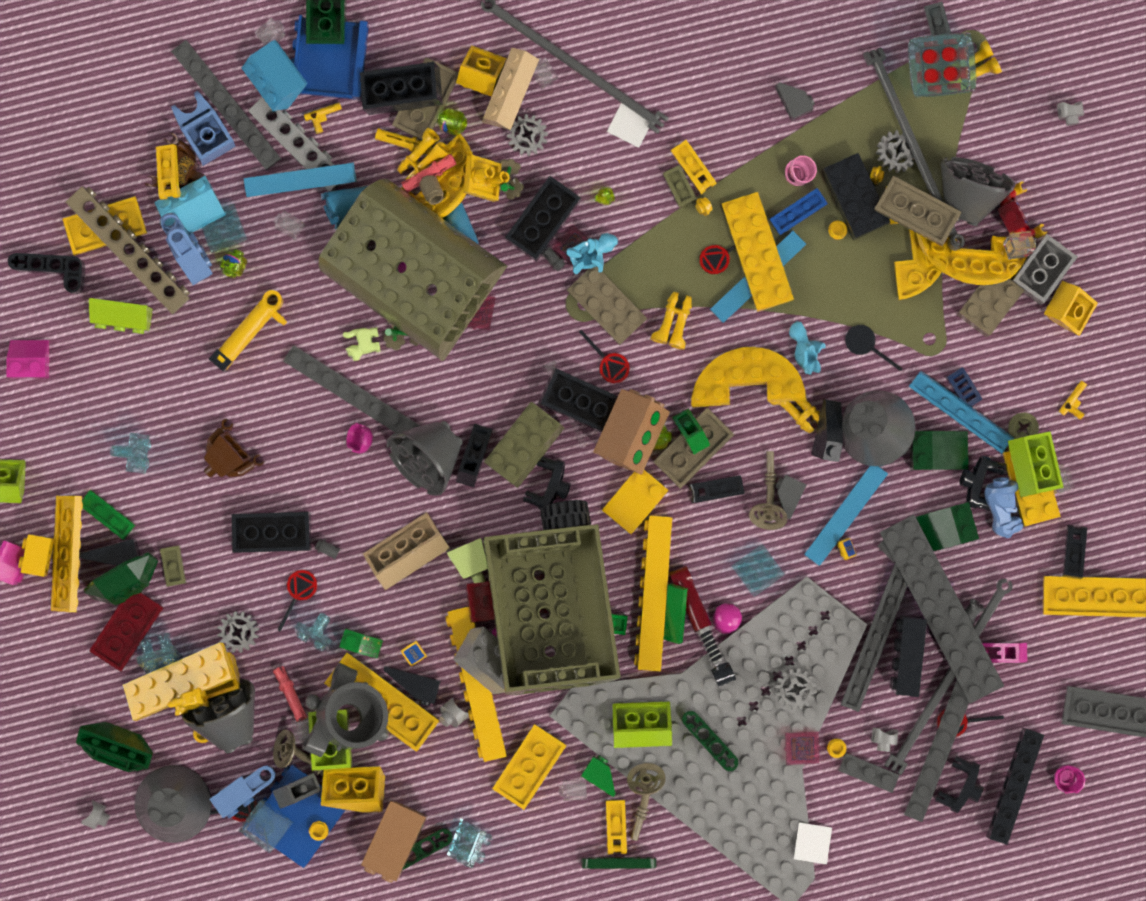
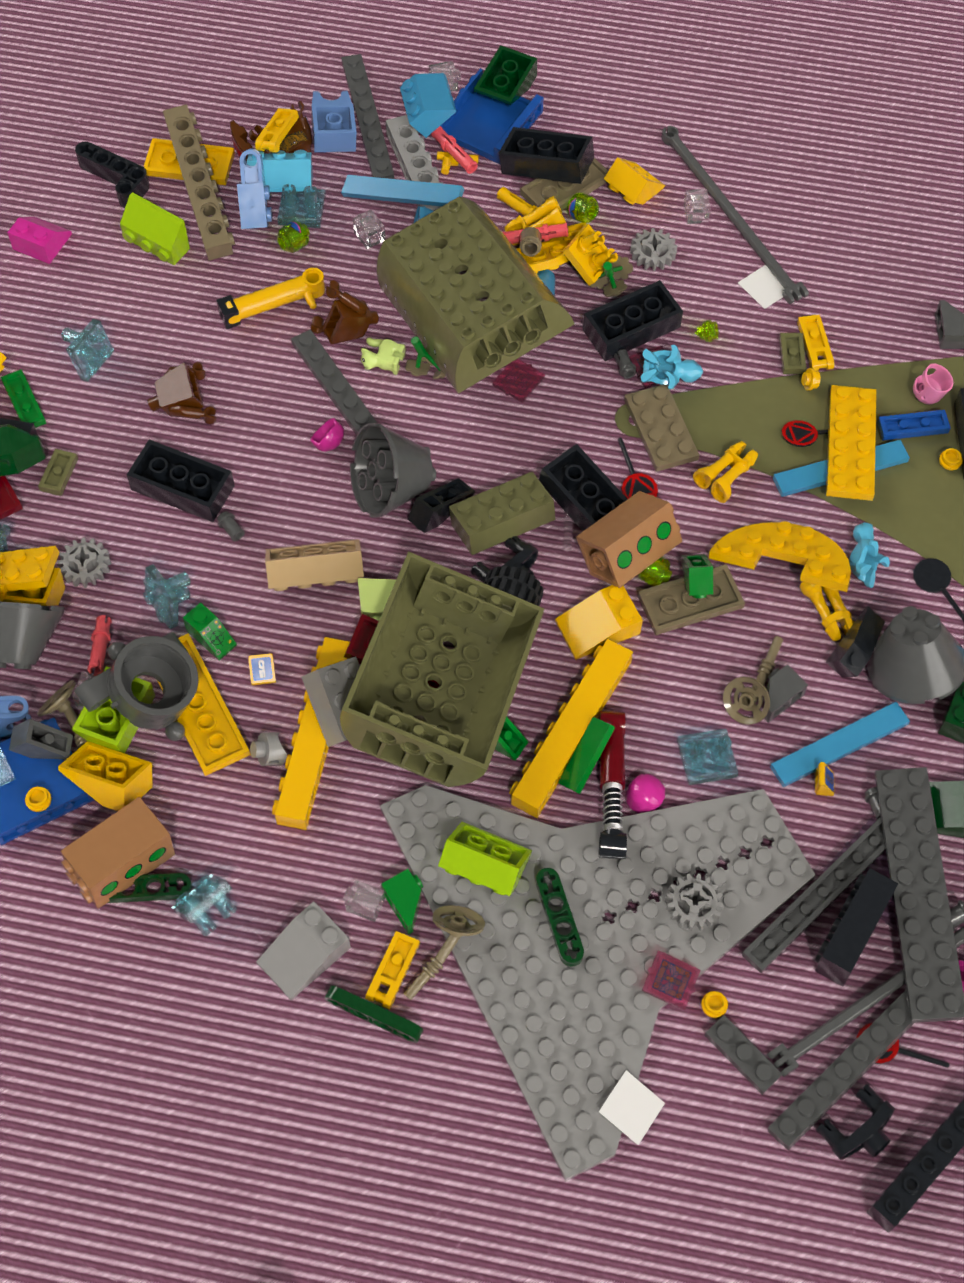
camera: 25 degrees right, 25 degrees down
(134, 183) = (239, 138): none -> reddish brown slope
(300, 586) = (178, 552): piece -> none
(319, 330) = (347, 317): none -> reddish brown torso
(338, 121) = (449, 145): none -> coral pin
(418, 686) = (250, 706): black slope -> none
(510, 89) = (655, 196): tan slope -> none
(529, 767) = (325, 851): yellow plate -> none
(551, 843) = (304, 951): none -> light grey slope
(717, 489) = (697, 651): black plate -> none
(884, 739) = (781, 1017): light grey piece -> none

